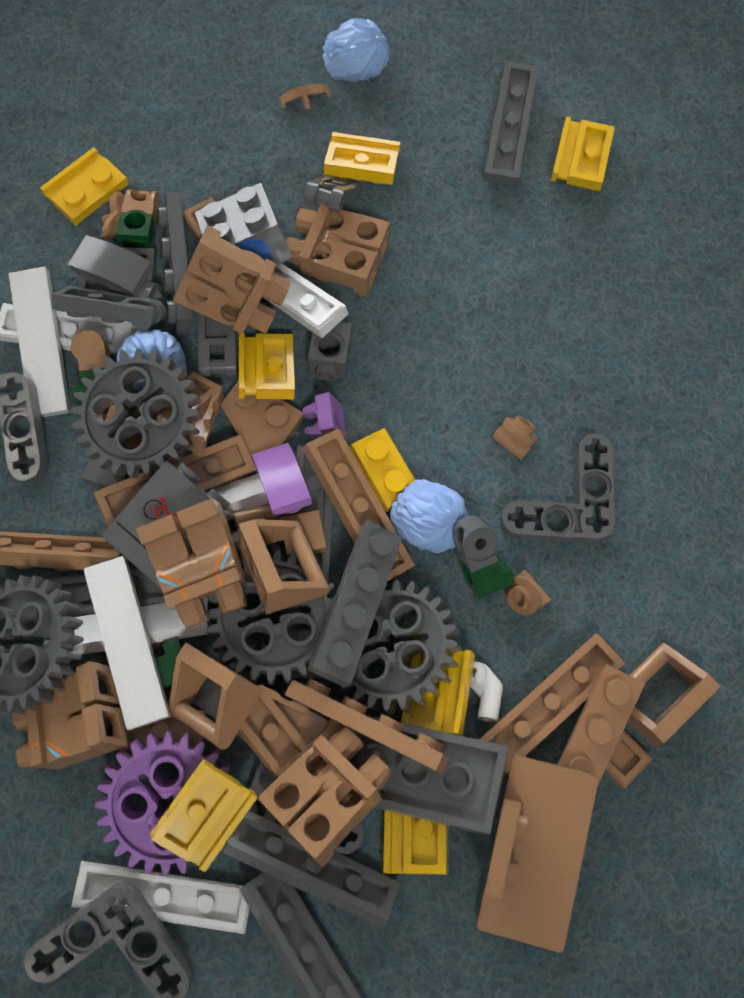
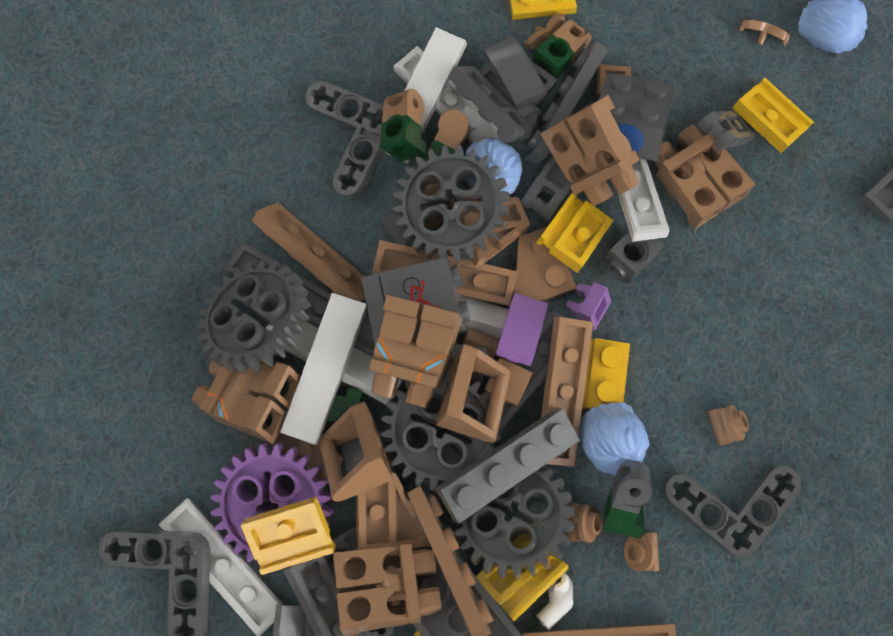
camera: 35 degrees right, 5 degrees up
(41, 378) = (403, 125): none -> dark green leg
(462, 605) = (586, 523): none -> medium nougat plate

